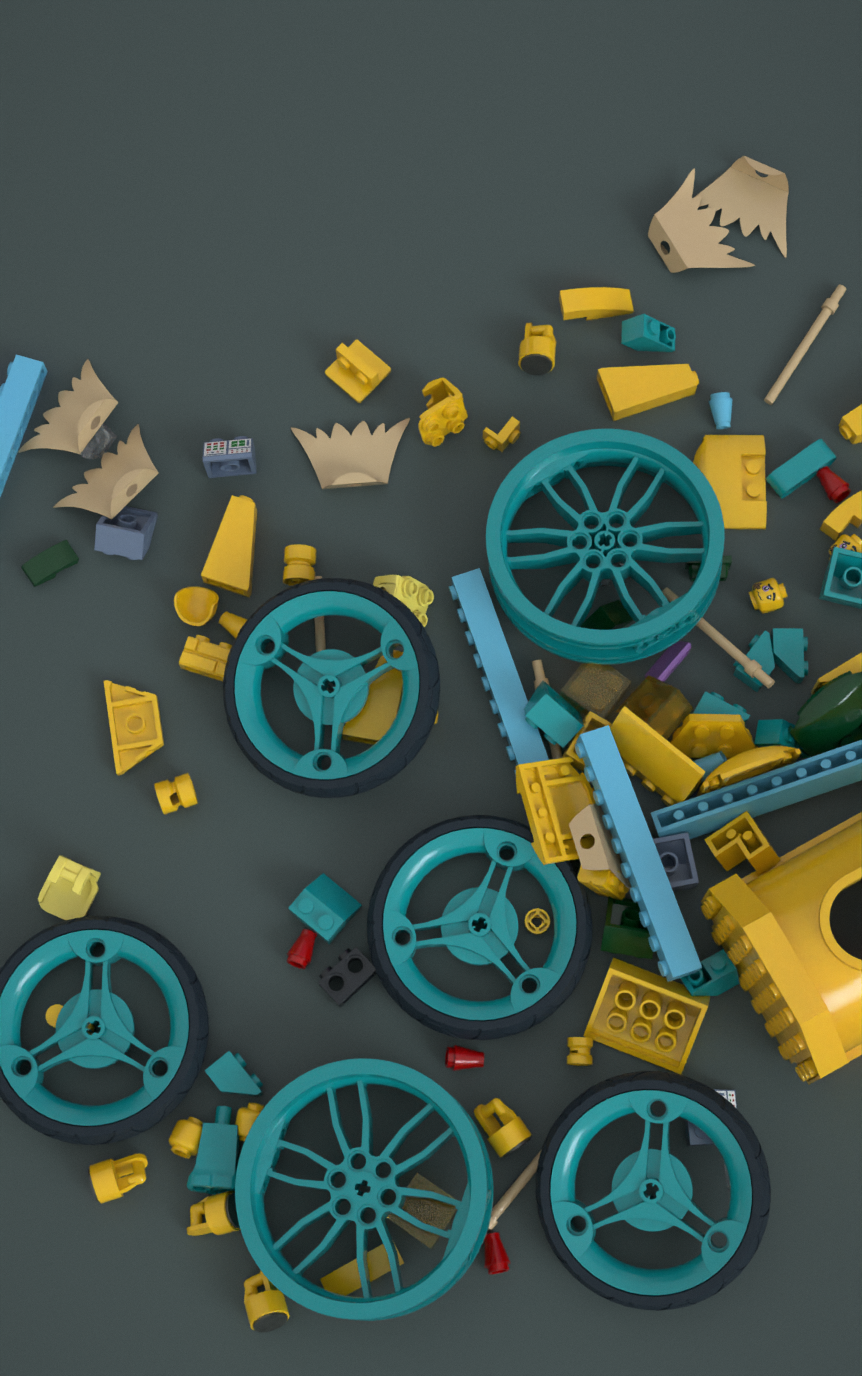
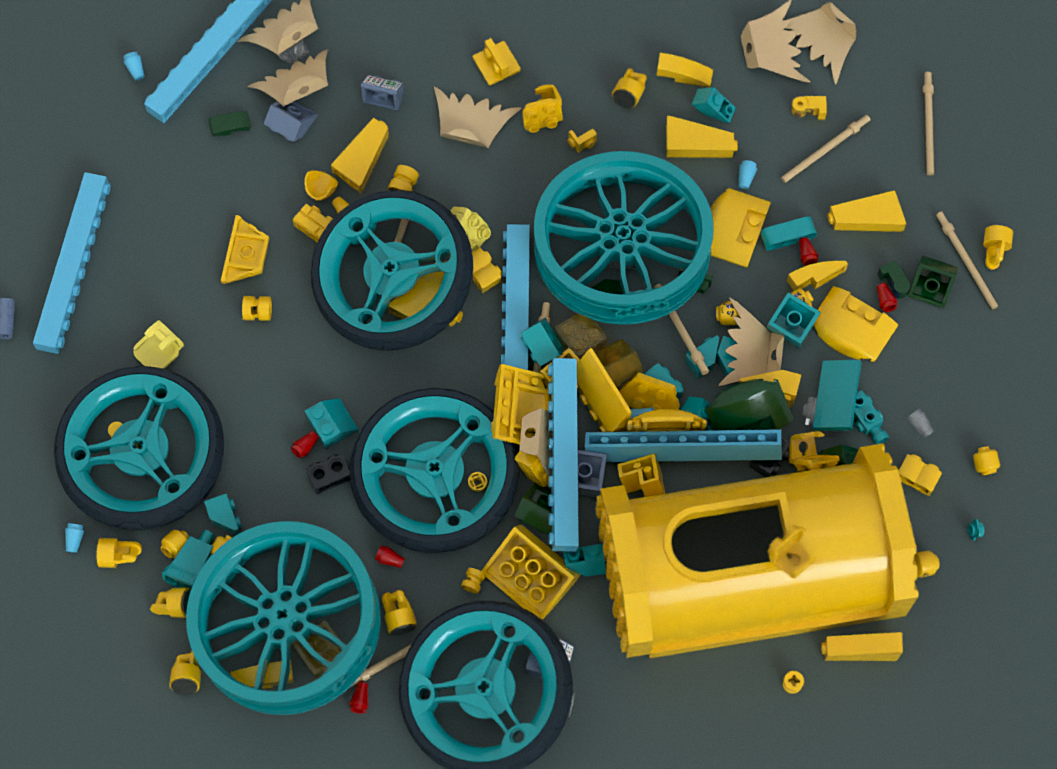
camera: 15 degrees right, 5 degrees down
(53, 1174) = (73, 537): none -> medium azure cone
(448, 648) = (484, 272): none -> yellow brick
(669, 661) = (642, 335): medium lavender slope -> none
(767, 296) = (809, 106): none -> yellow leg
(816, 633) = (753, 347): none -> tan piece

